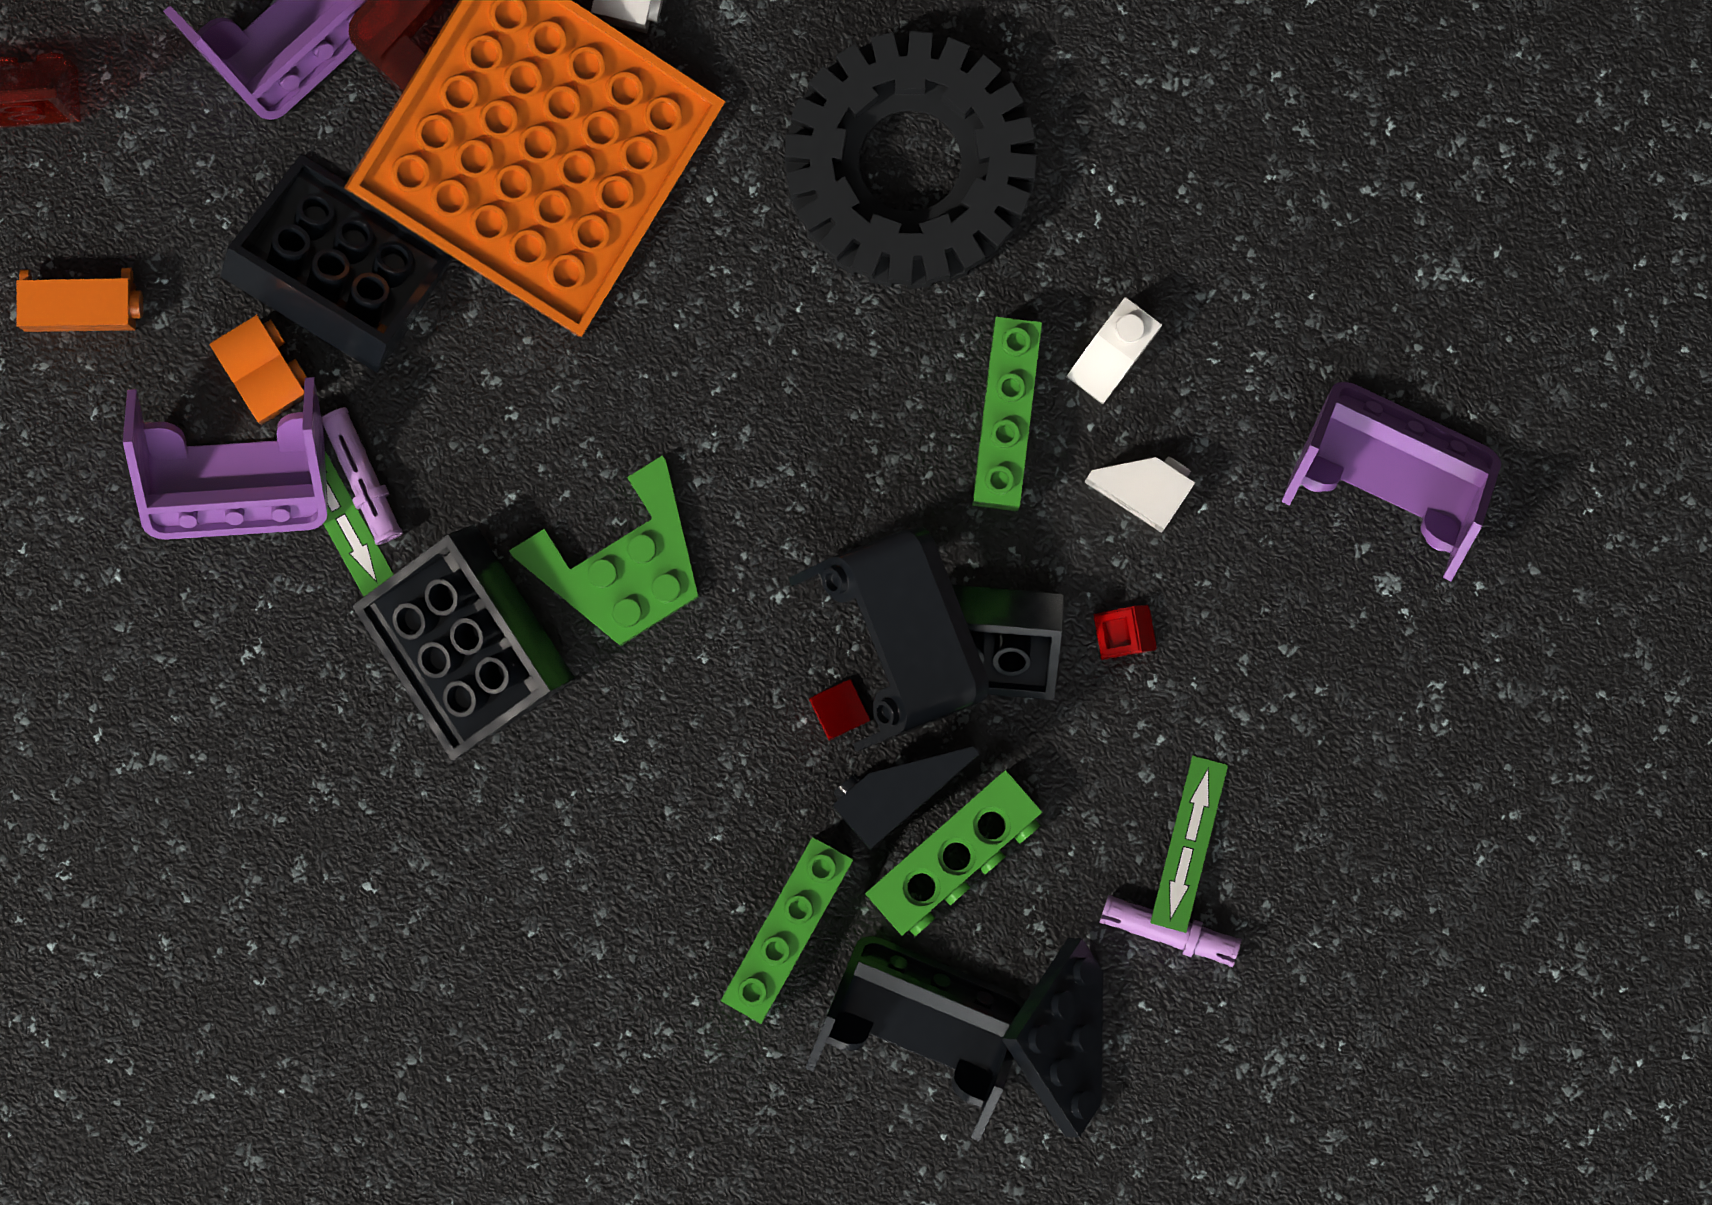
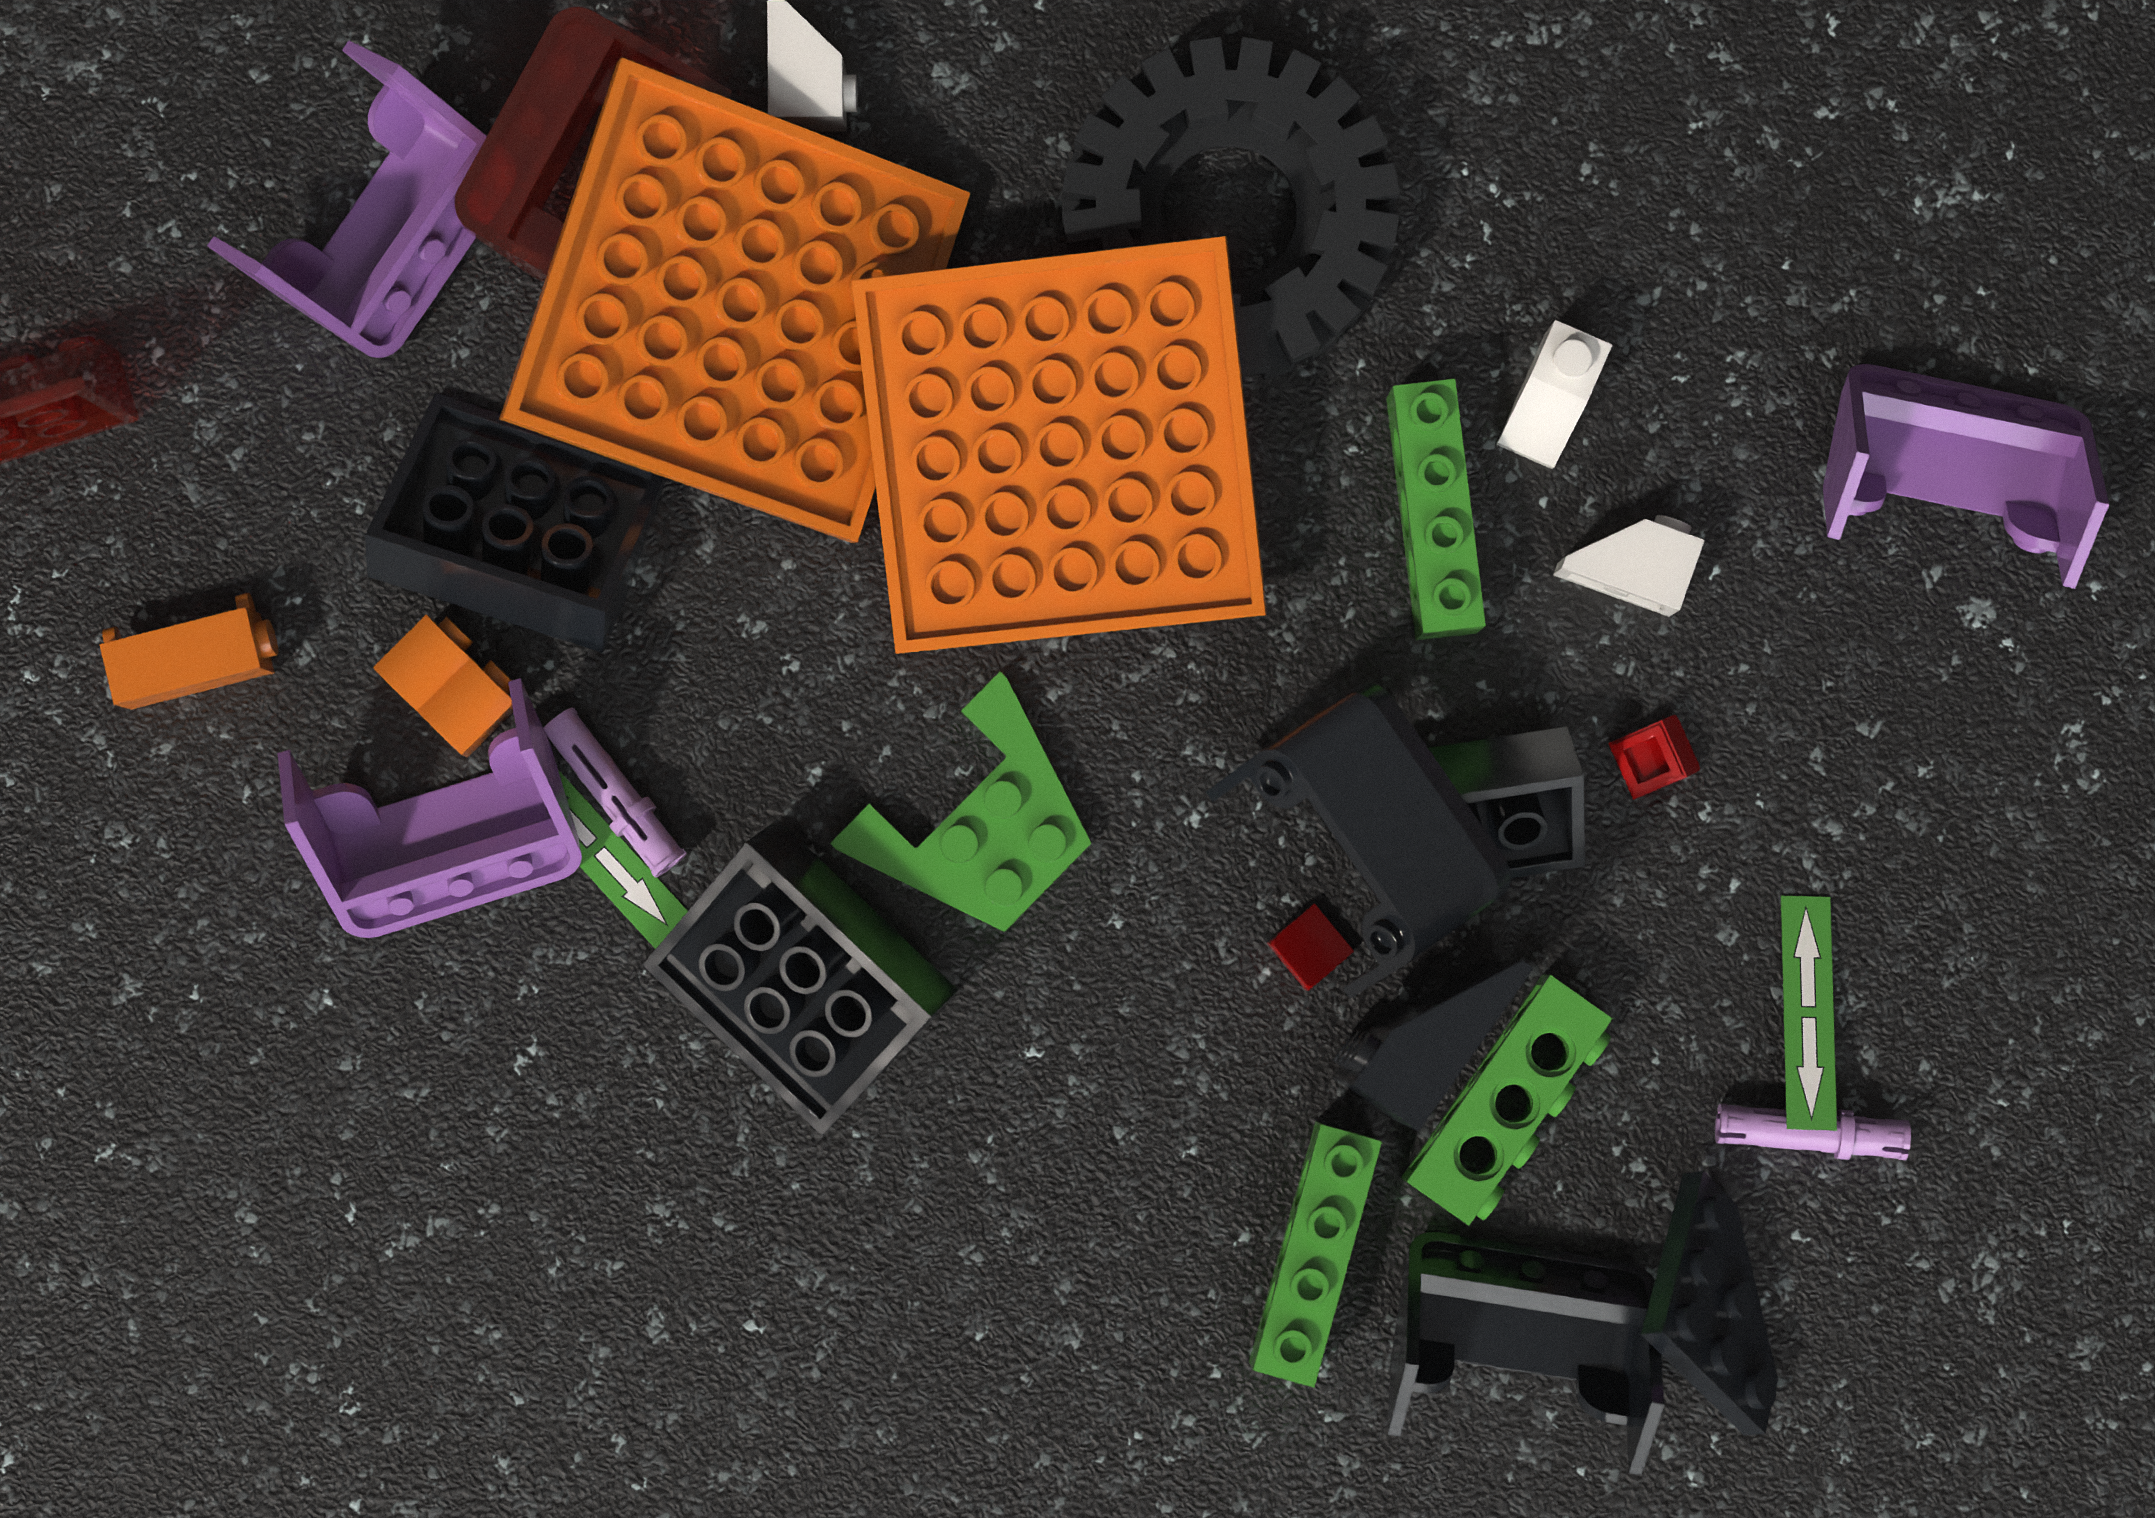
camera: 15 degrees left, 0 degrees up
(743, 303) = (1060, 445): none -> orange plate

